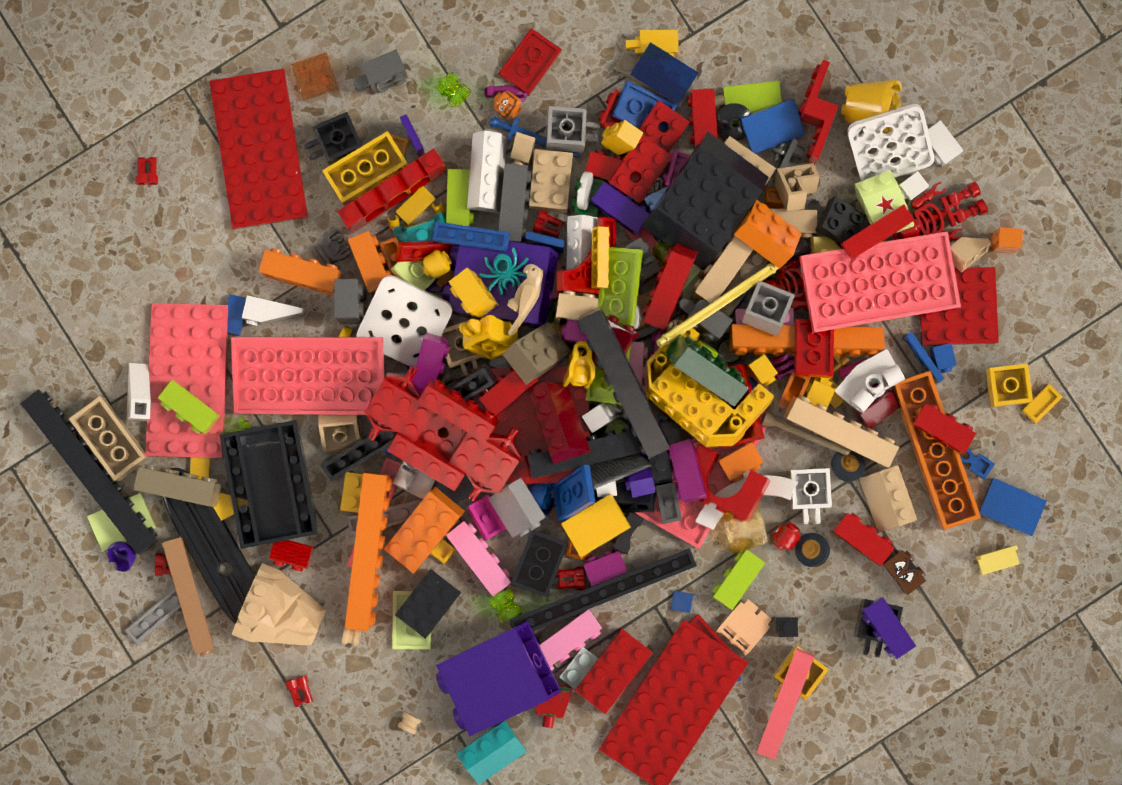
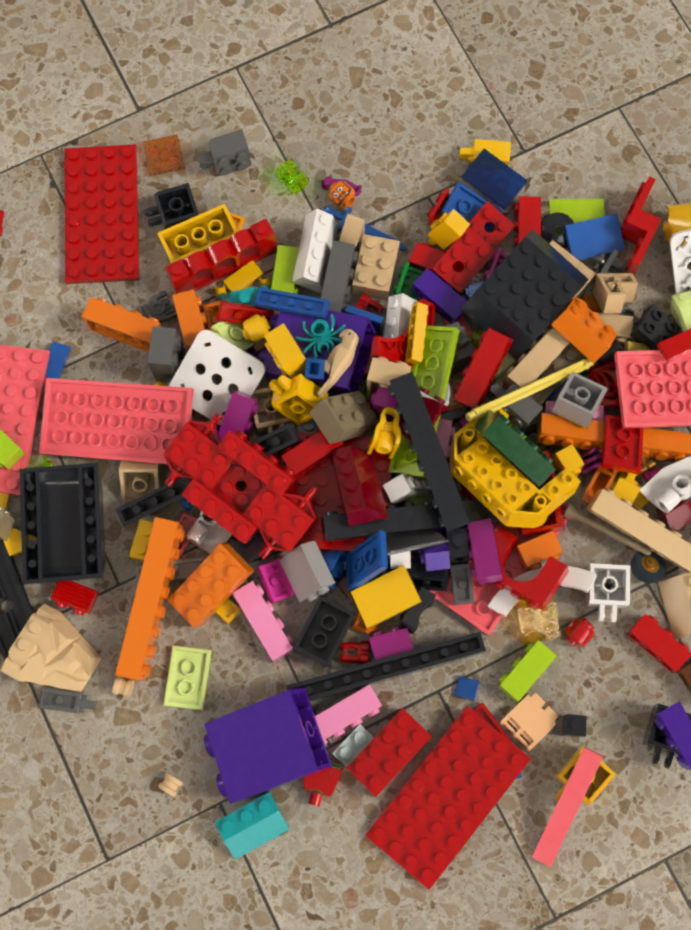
camera: 10 degrees right, 10 degrees down
(266, 311) = (86, 360): white slope -> none
(297, 655) = (65, 701): none -> dark grey hinge
(299, 683) = (62, 730): red piece -> none
(412, 135) = (246, 207): dark purple tile -> none
(428, 603) = (205, 661): black brick -> none
(502, 308) = (314, 368): none -> blue slope
(505, 606) = (284, 672): clear neon green wheel -> none
(530, 62) = (367, 161): red tile -> none
(574, 138) = (398, 220): light grey hinge -> none
(585, 190) = (408, 274): white tile -> none
(812, 550) = (606, 648): black wheel -> none

